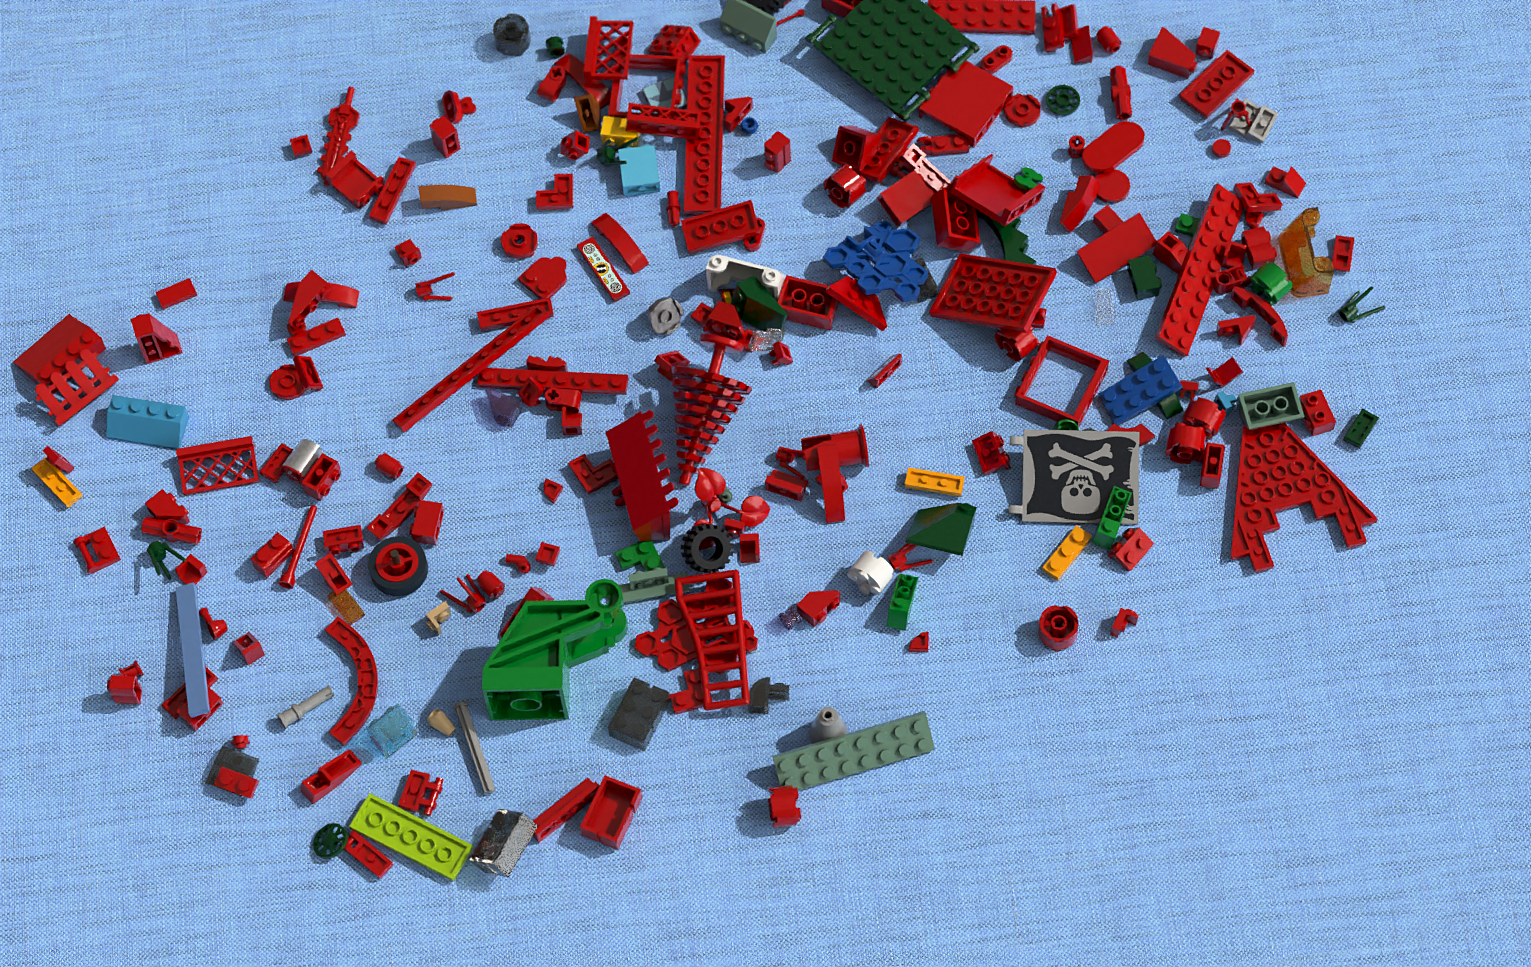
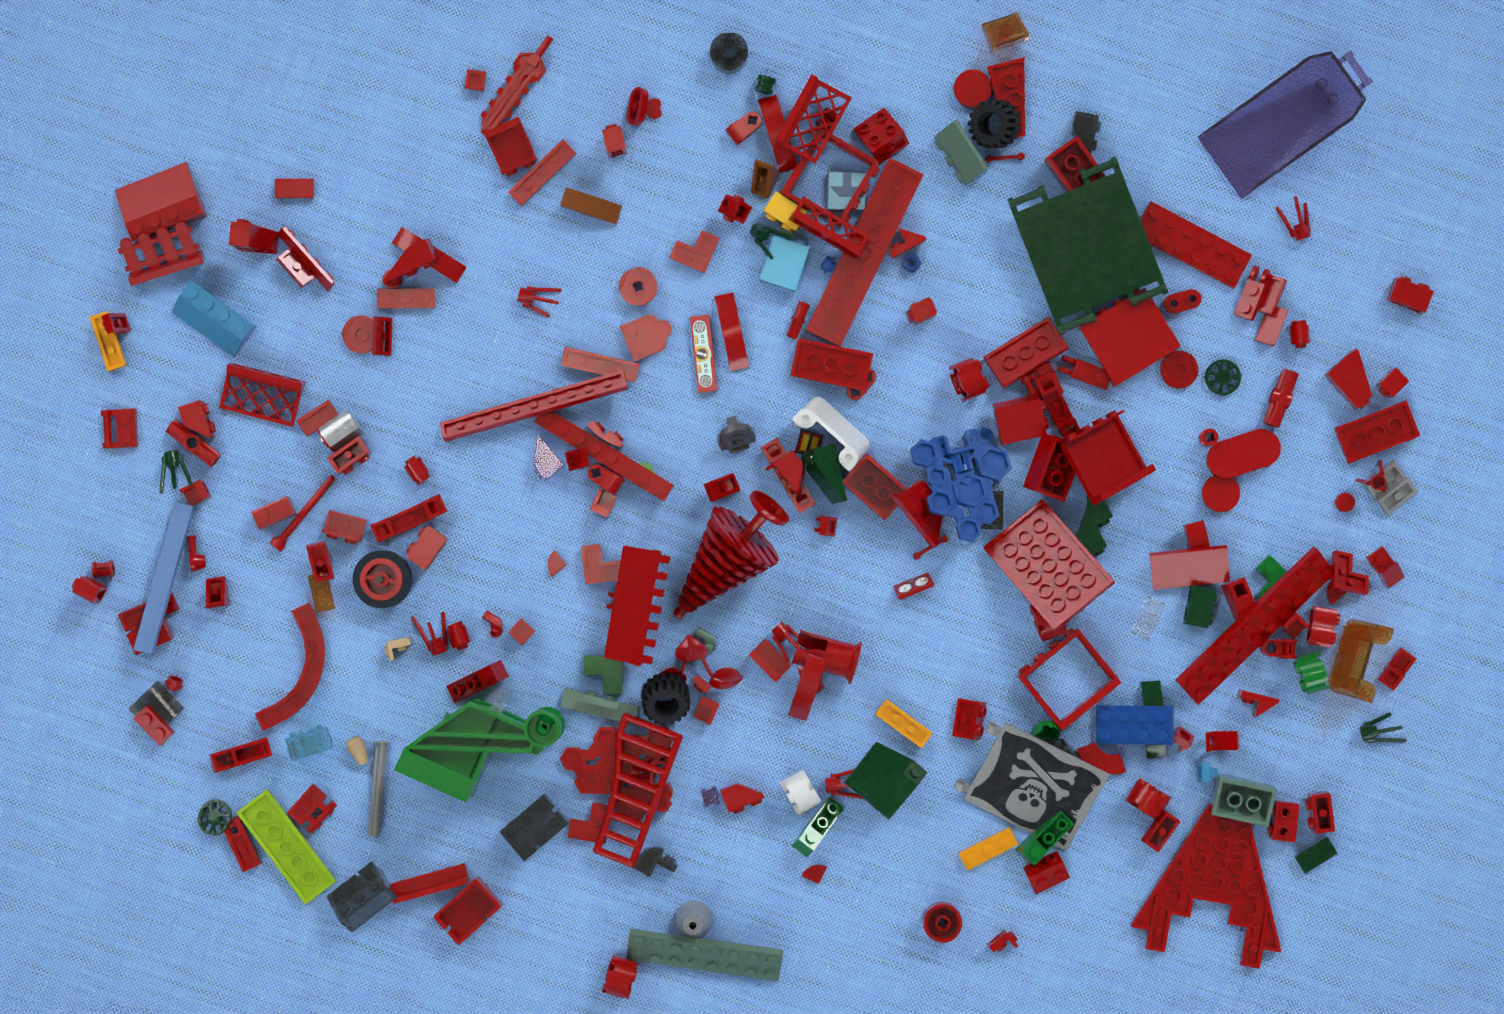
camera: 20 degrees right, 25 degrees up
(208, 345) = (300, 263): none -> bracket
(297, 711) = (236, 678): light grey pin -> none
(408, 252) = (529, 248): red bracket -> none
(678, 156) = (828, 264): none -> blue plate
(764, 340) = (812, 510): clear slope -> none
(855, 146) = (999, 339): red slope -> none
(891, 323) = (916, 555): none -> red hinge
(1025, 180) = (1140, 451): green piece -> none
(1079, 202) = (1179, 500): red slope -> none
(1204, 414) = (1177, 780): red brick -> none
(1246, 298) = (1294, 721): red slope -> none
(1344, 389) = (1320, 812): none -> red brick

